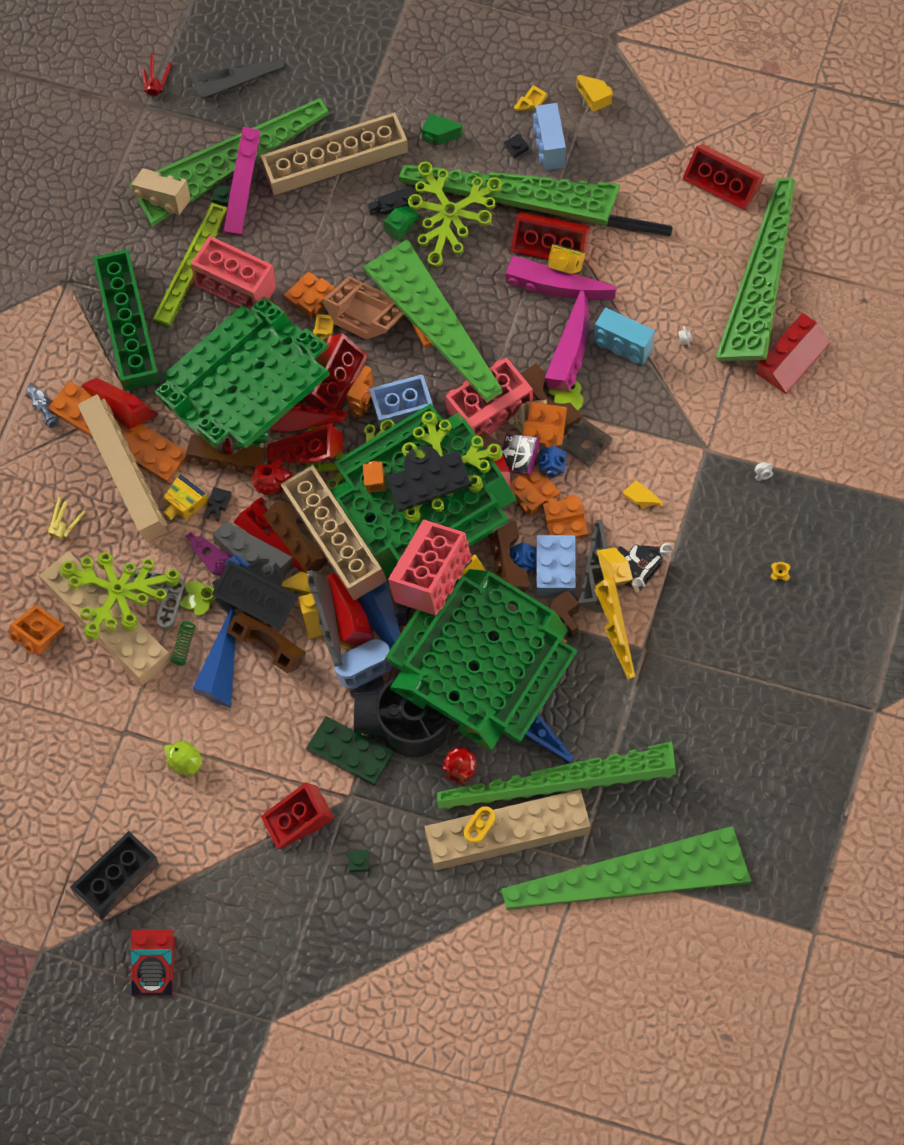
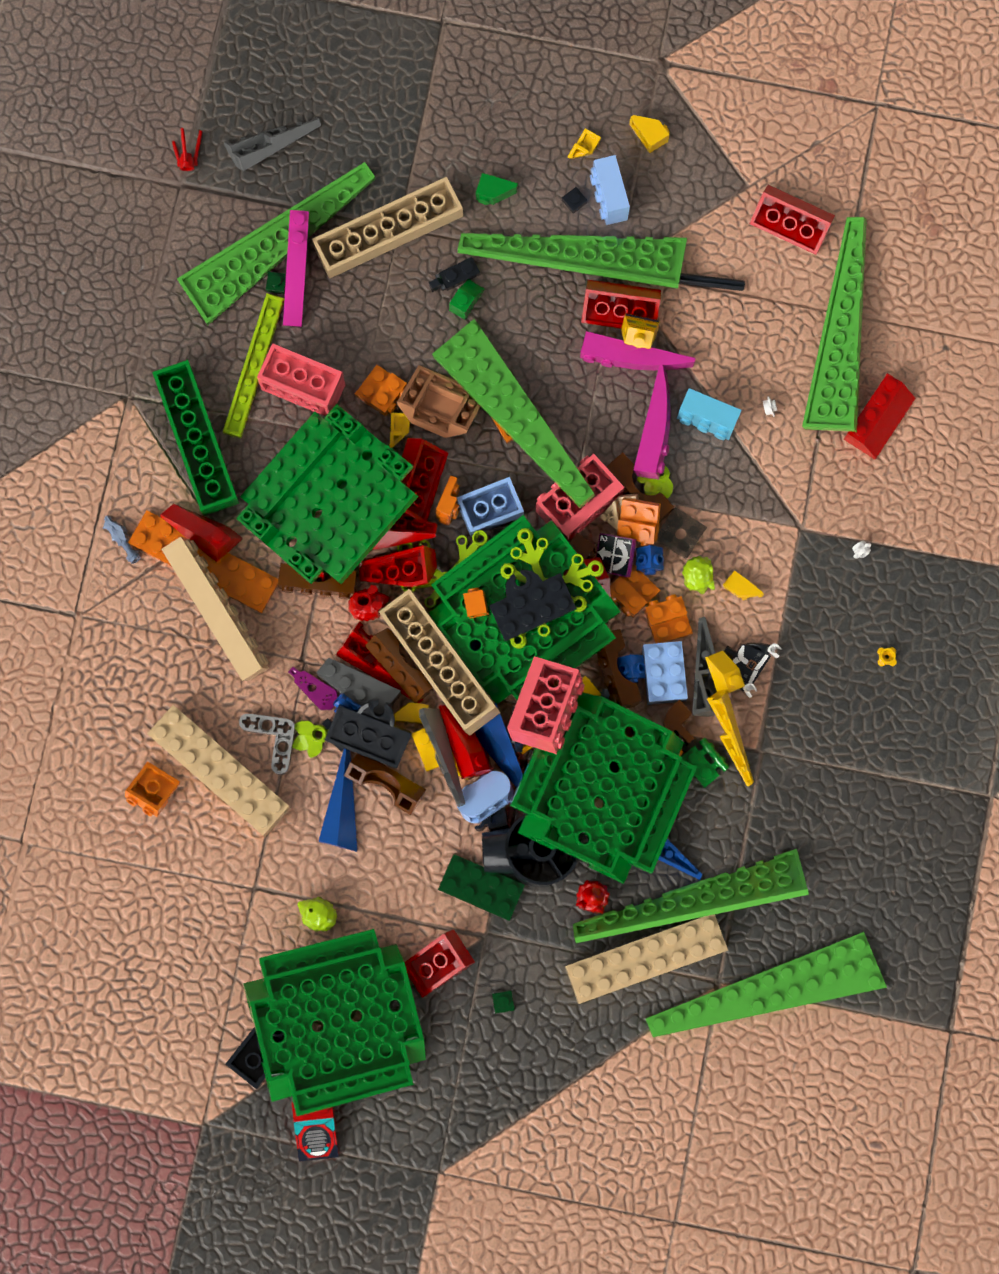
camera: 10 degrees left, 15 degrees up
(57, 528) = (156, 675): light yellow plant -> none
(139, 584) = (250, 735): lime plant -> none
(162, 191) = (212, 288): tan wedge -> none
(184, 498) = (281, 632): yellow torso -> none
(184, 628) = (300, 770): green piece -> none
(189, 889) = (346, 1056): none -> green slope
(218, 501) = (316, 629): black plate -> none
(443, 231) = (511, 306): lime plant -> none
(479, 826) = (620, 964): yellow plate -> none
(584, 660) = (705, 771): none -> green plate
(598, 478) = (698, 574): none -> lime animal

